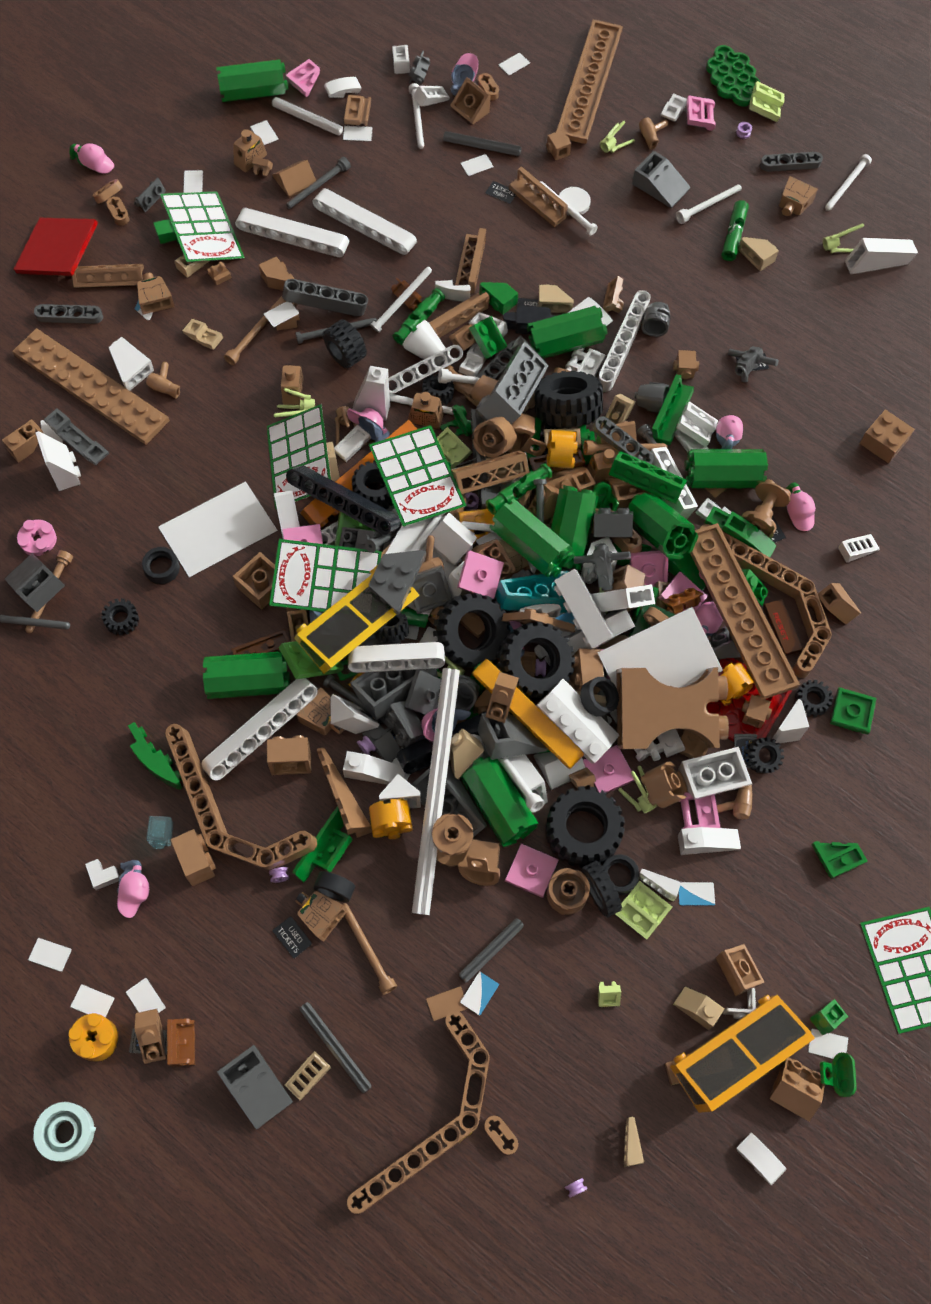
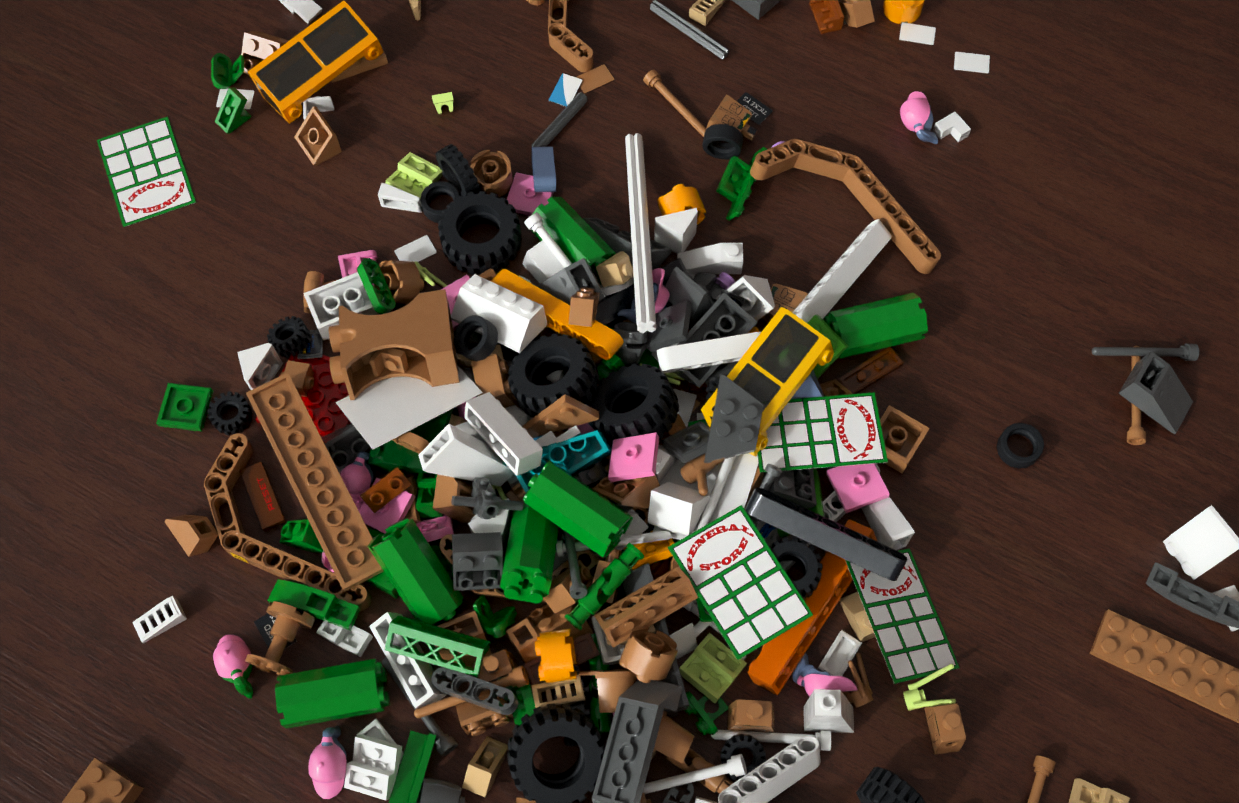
camera: 175 degrees right, 0 degrees up
(32, 528) = (1186, 447): bright pink plate -> none
(120, 627) = (1049, 368): black tyre -> none
(130, 363) = (1180, 726): white slope -> none
(145, 997) = (870, 42): white sticker -> none
(154, 760) = (949, 233): green slope -> none
(159, 831) = (910, 169): clear light blue brick -> none
(161, 384) = (1124, 701): medium nougat piece -> none
(191, 854) = (869, 142): medium nougat brick -> none
(217, 529) = (971, 511): white sticker -> none
(289, 755) = (802, 250): medium nougat brick -> none
(349, 809) = (734, 225): medium nougat wedge -> none
(452, 838) = (613, 185): medium nougat piece -> none
(481, 863) = (581, 183): medium nougat container -> none
(516, 888) = (543, 169): none -> sand blue beam
(646, 832) = (416, 250): none -> white sticker
(692, 781) = (380, 299): none -> green beam
(696, 893) = (361, 203): sticker -> none
(699, 1007) = (356, 102): tan slope -> none
(708, 840) = (352, 241): white slope -> none
(738, 681) = (321, 397): light orange brick -> none
(839, 857) = (212, 253): green wing -> none

